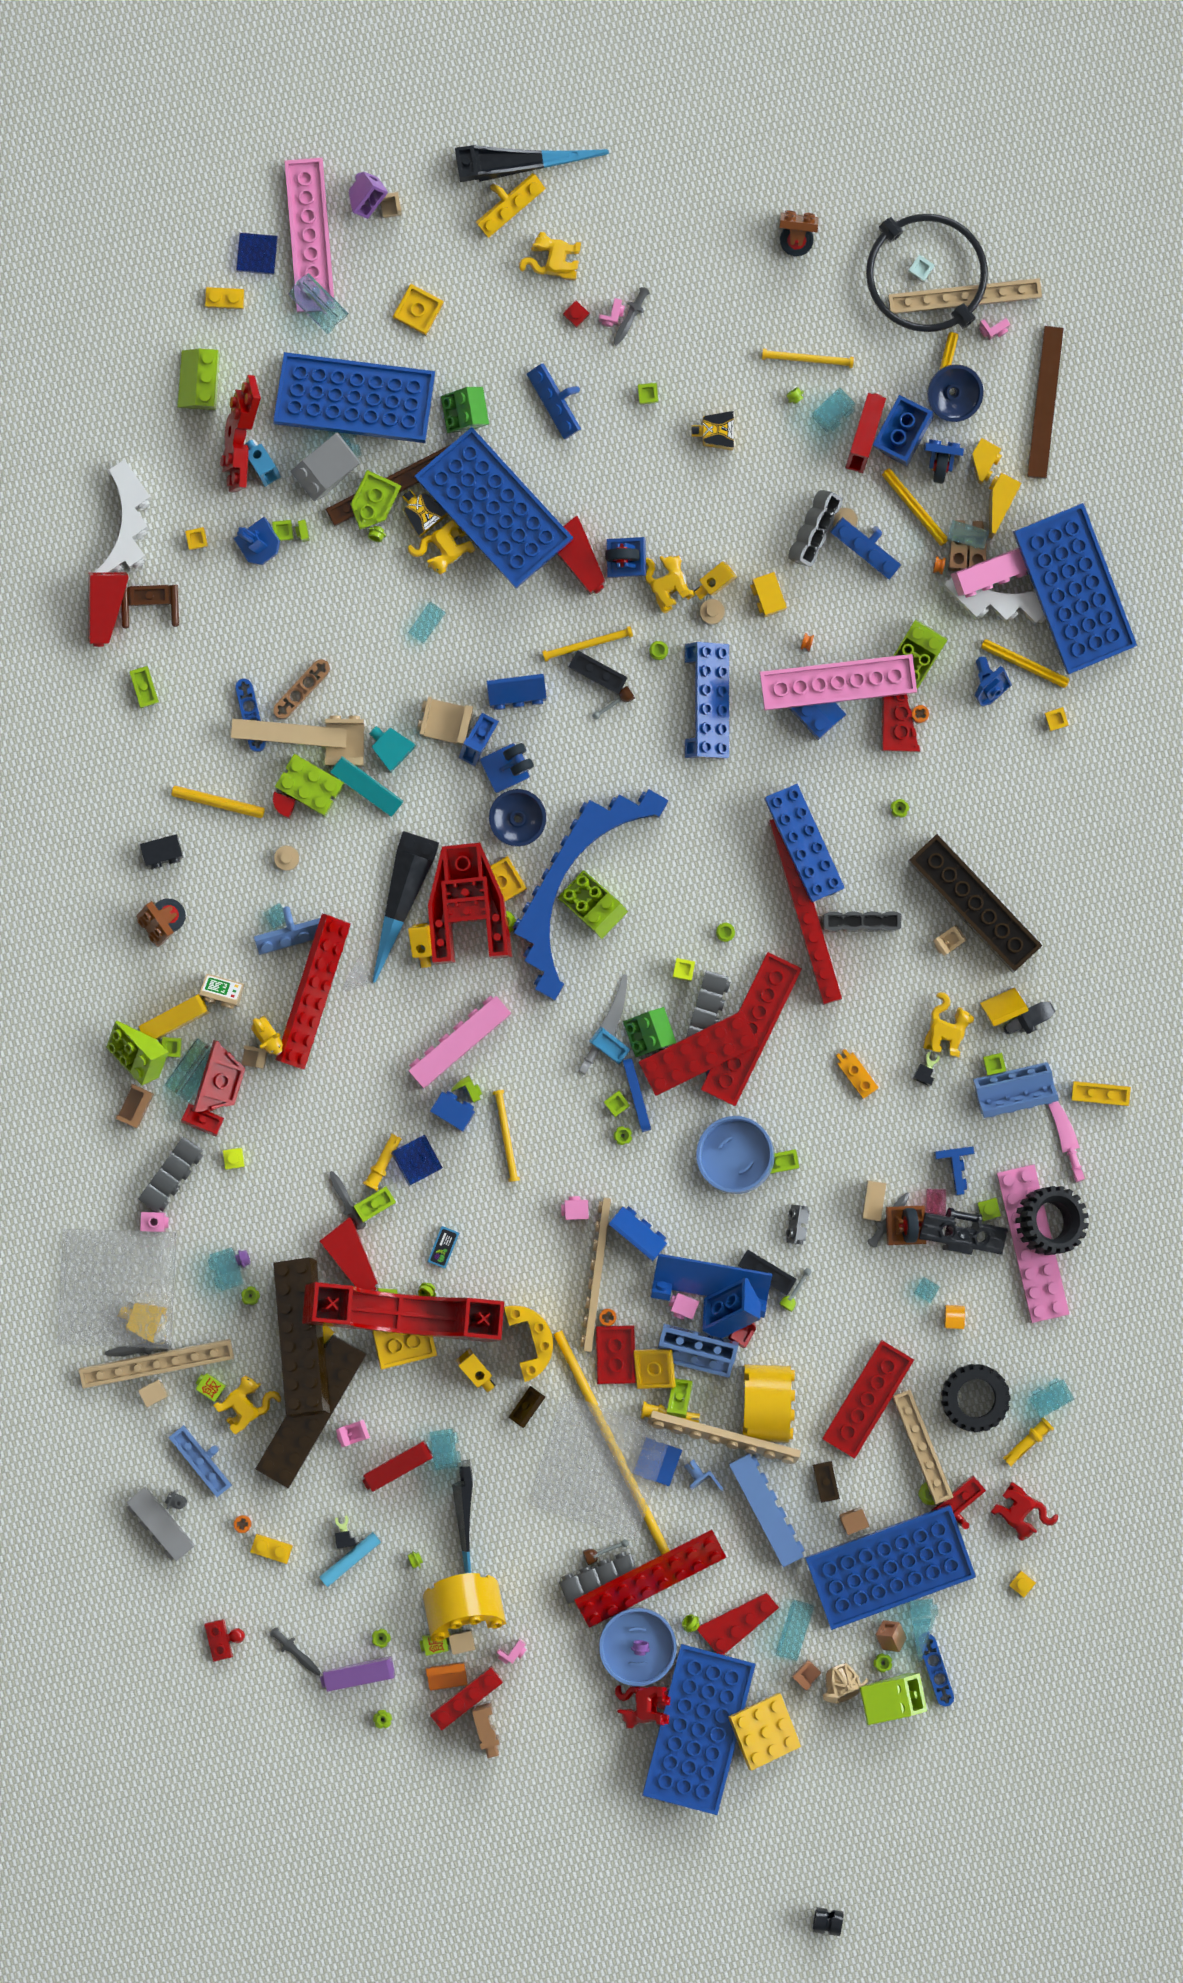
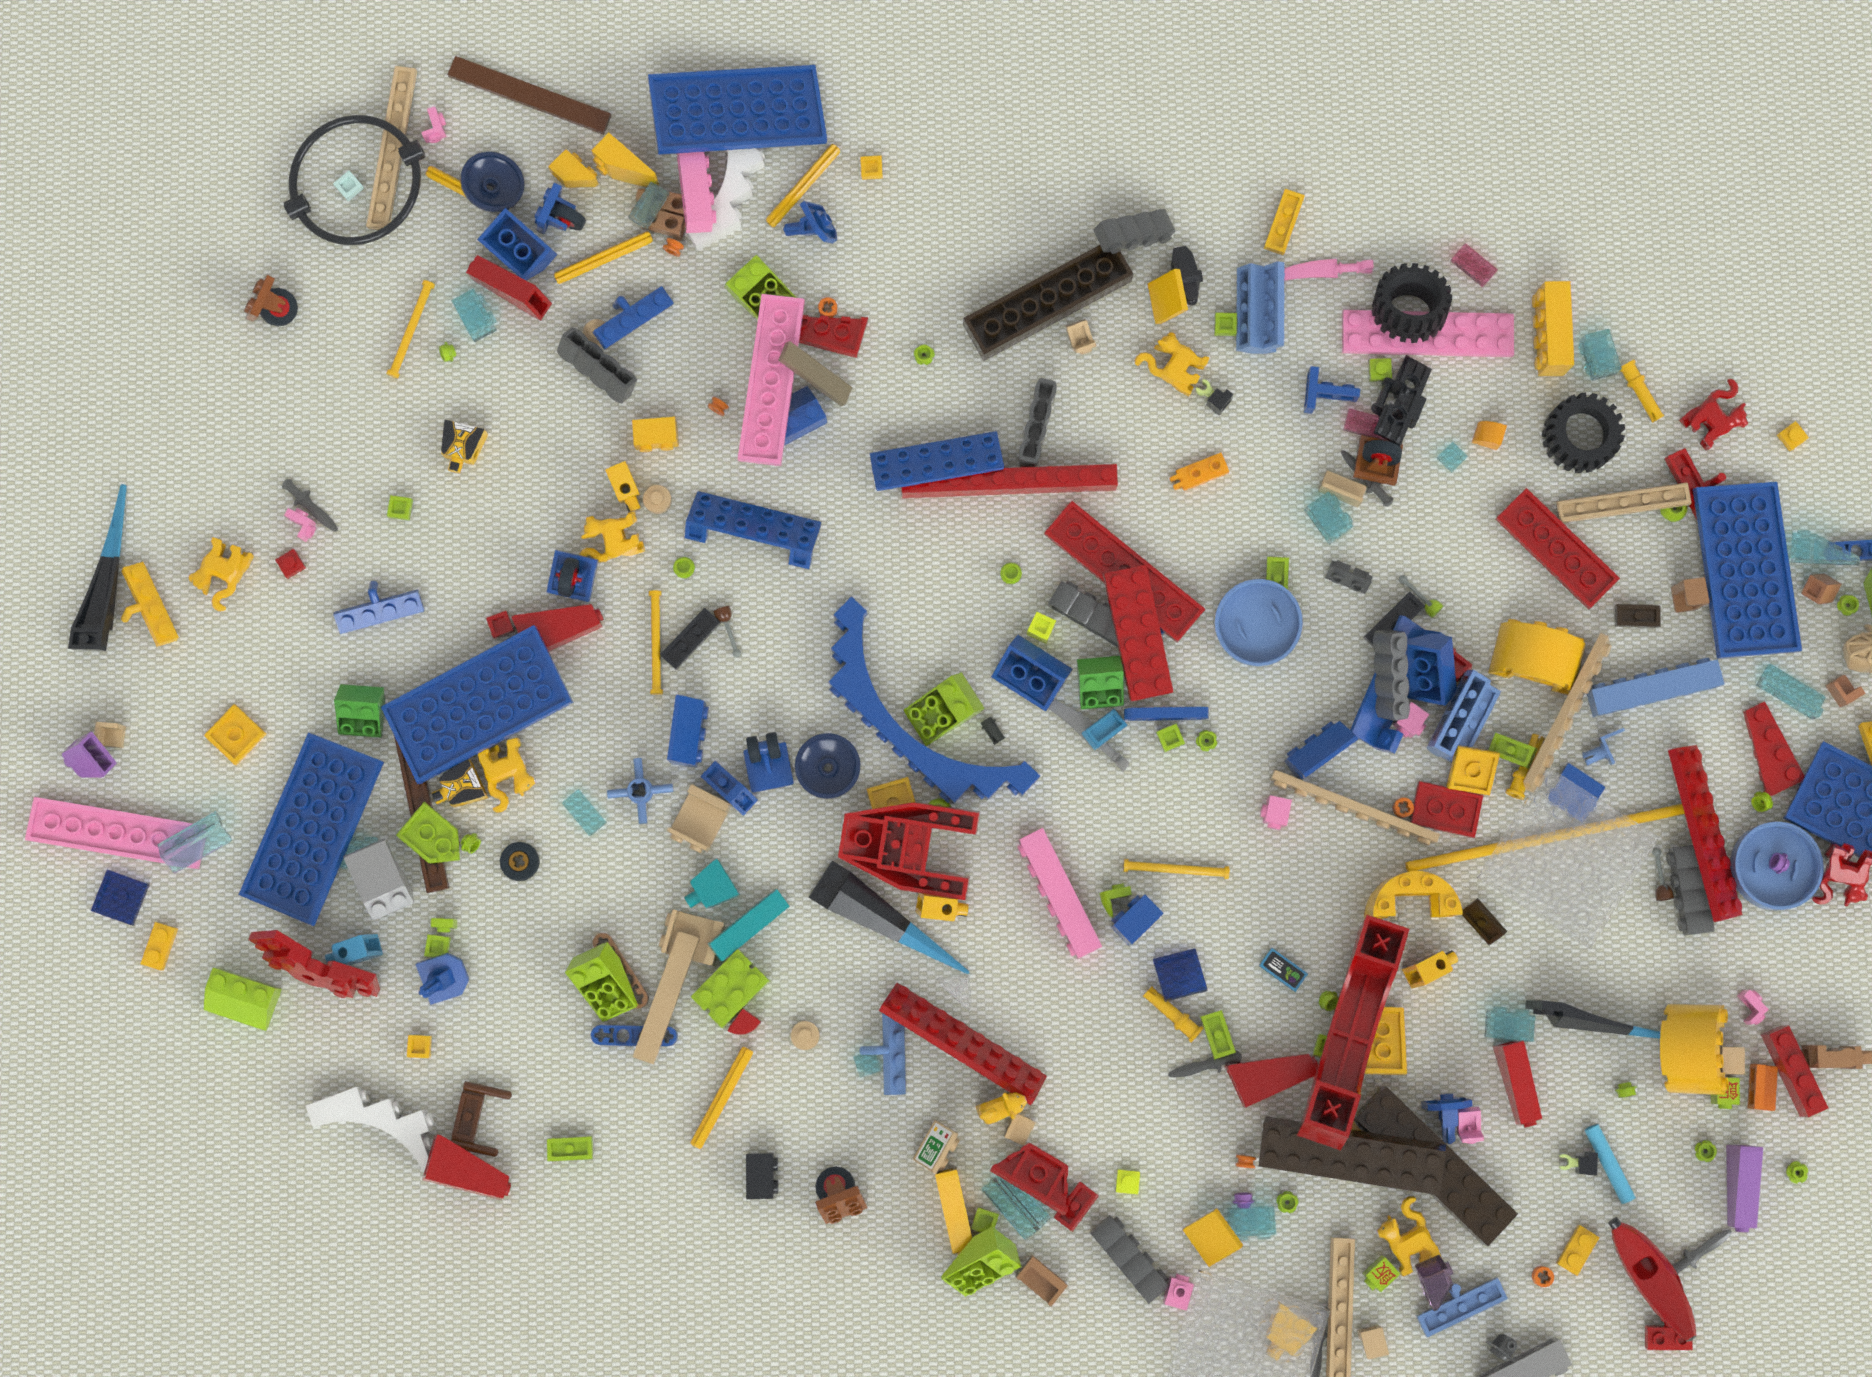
camera: 70 degrees left, 5 degrees down
(205, 1239) = (1212, 1237): none -> yellow tile
(217, 1431) = (1435, 1280): none -> clear purple slope
(264, 1613) = (1654, 1278): none -> red piece
(275, 1252) = (1245, 1161): none -> orange bush
(288, 676) = (602, 981): none -> lime slope
(362, 1410) = (1447, 1110): none -> blue piece
(367, 570) = (530, 858): none -> black bush
(459, 673) = (634, 785): none -> medium blue bar
(568, 507) = (500, 624): none -> red plate
(584, 950) = (992, 730): none -> pearl dark grey pin
(643, 971) = (1031, 672): none -> blue slope
(714, 1277) = (1391, 672): none -> dark grey brick
(844, 1194) = (1329, 517): none -> clear light blue brick
(854, 718) = (815, 373): none -> dark tan tile
(1054, 963) = (1134, 231): none -> dark grey brick
(1061, 1351) = (1553, 328): none -> yellow brick
(1104, 1269) = (1474, 265): none -> clear pink plate

